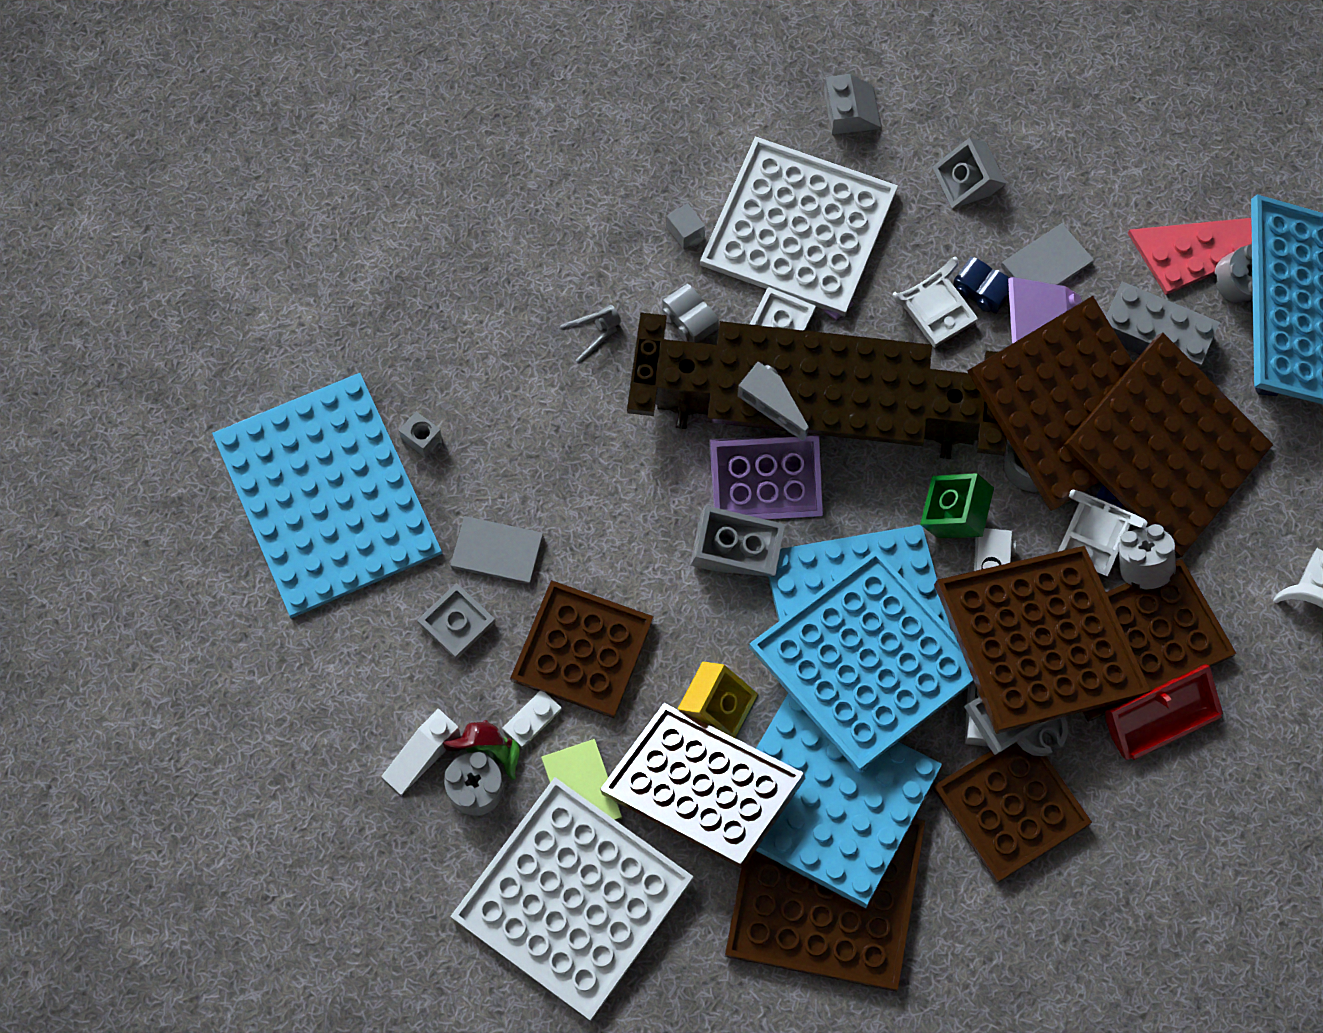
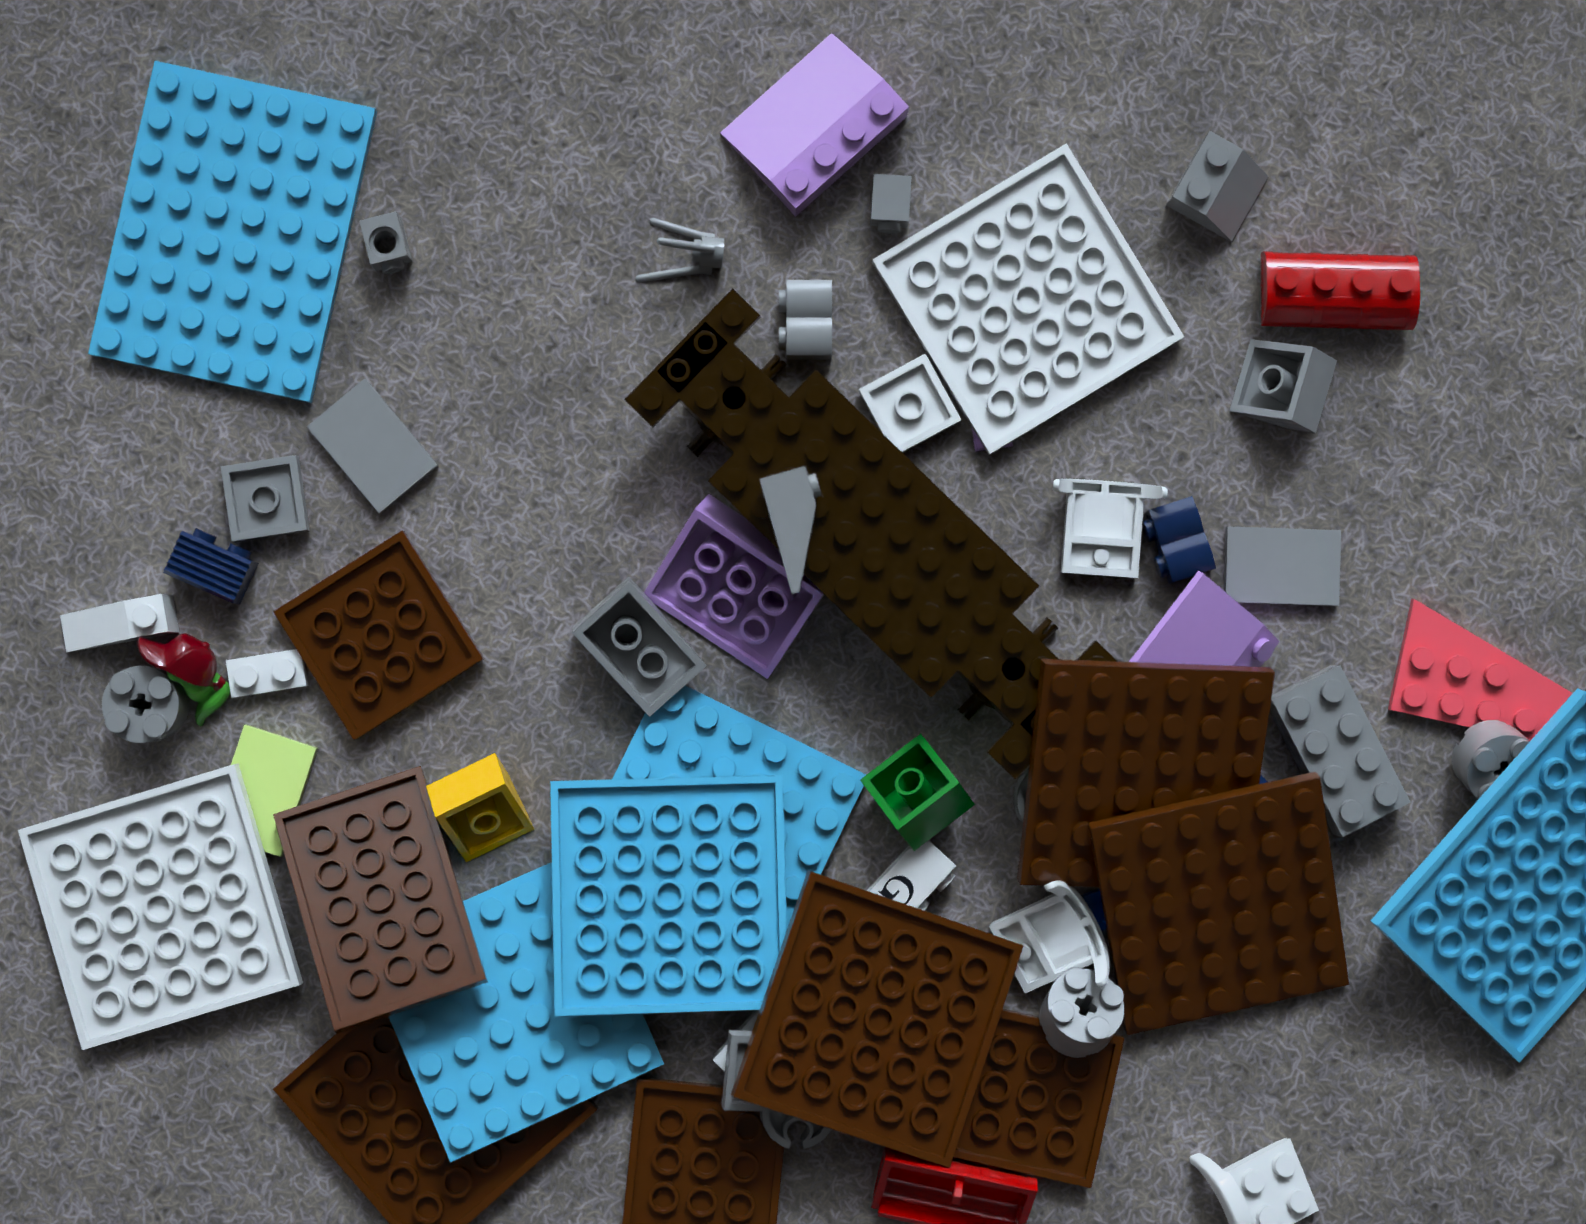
camera: 35 degrees right, 20 degrees up
(453, 679) = (210, 566): none -> dark blue brick
(613, 217) = (815, 123): none -> lavender slope
(958, 109) = (1339, 290): none -> red container

